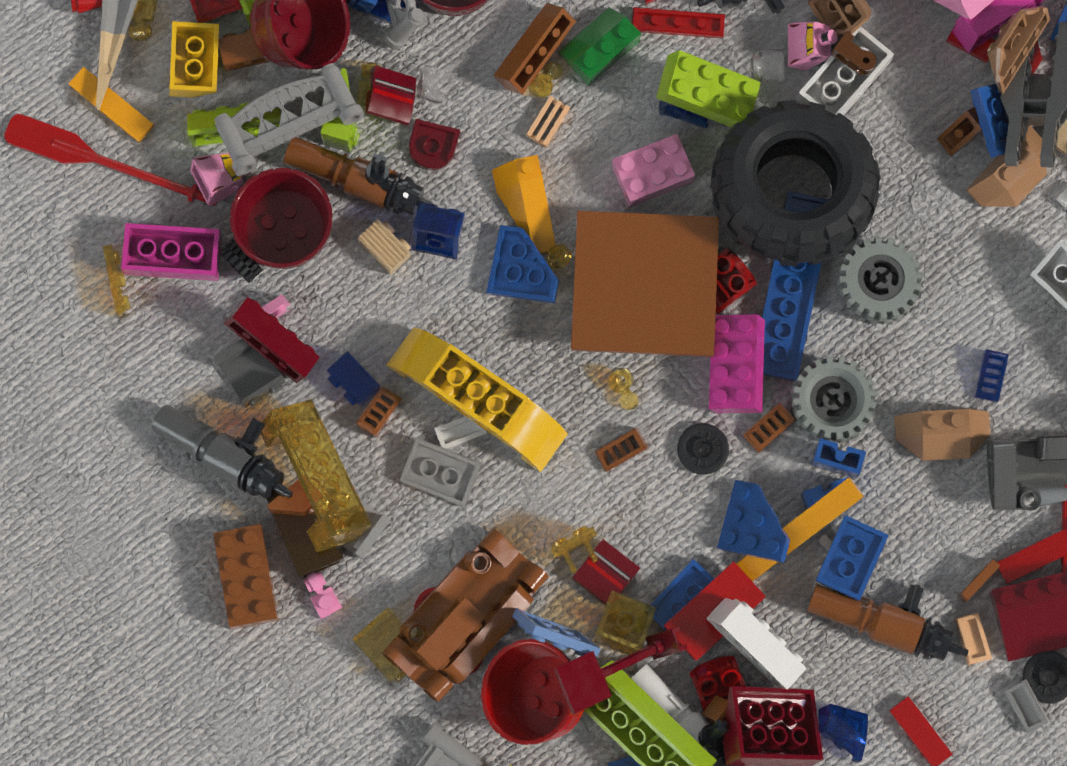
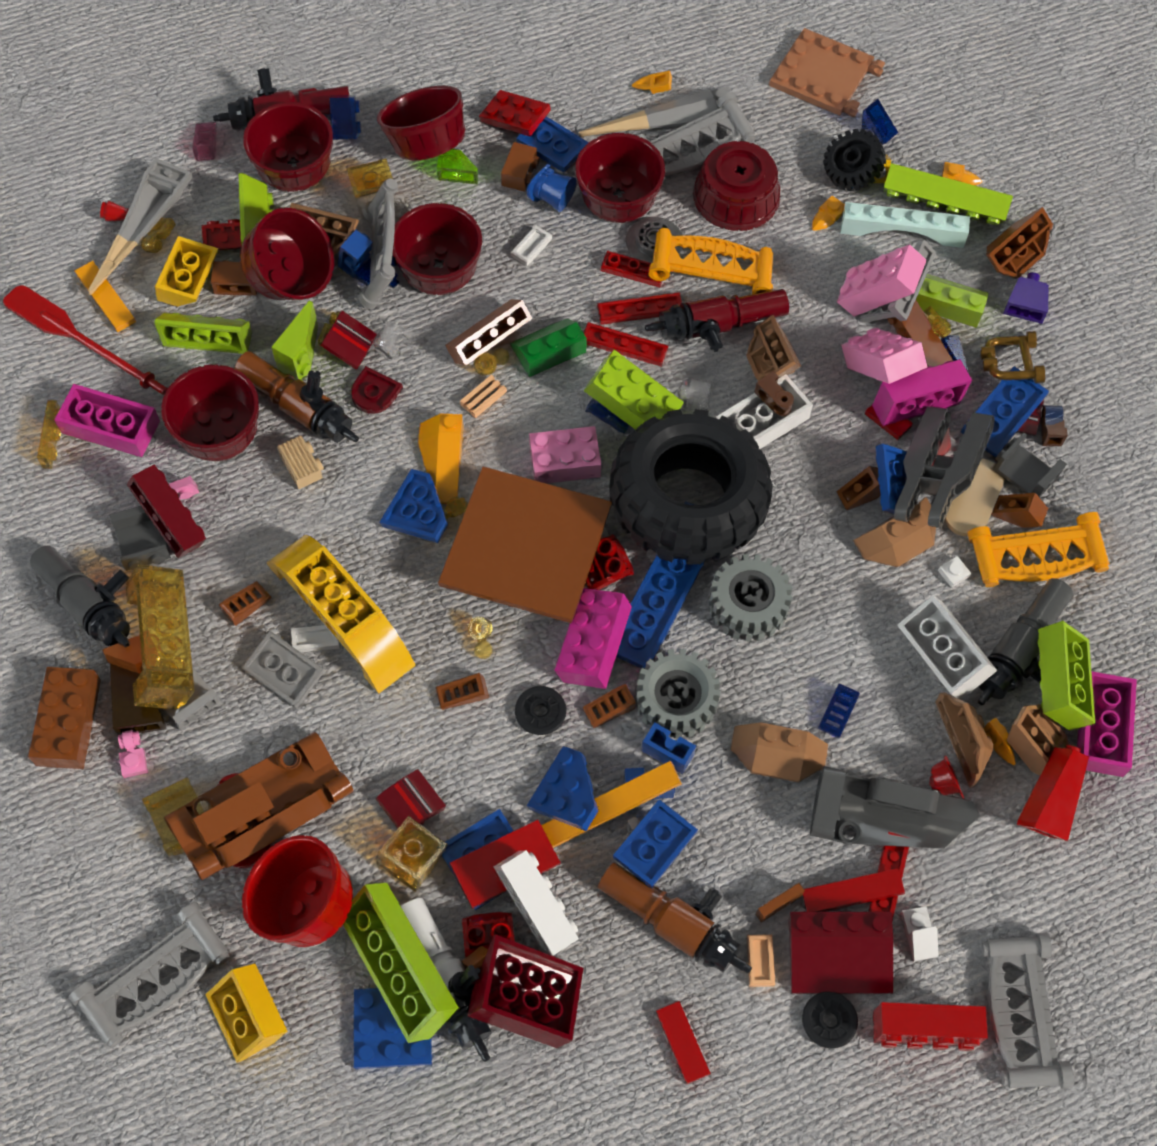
camera: 15 degrees right, 15 degrees down
(216, 177) = (169, 365): bright pink torso -> none
(240, 261) = (165, 442): black tyre -> none
(245, 146) = (197, 338): light grey piece -> none
(353, 379) = (230, 566): clear blue brick -> none
(437, 231) = (350, 458): clear blue slope -> none
(561, 636) = (337, 840): medium blue plate -> none
(580, 537) = (376, 764): clear yellow plate -> none
(585, 681) = (345, 886): dark red piece -> none
(809, 44) = (736, 382): bright pink torso -> none
(845, 729) = (604, 1015): clear blue slope -> none
(1015, 43) = (929, 416): medium nougat wedge -> none
(1026, 706) = (799, 1043): light grey tile -> none

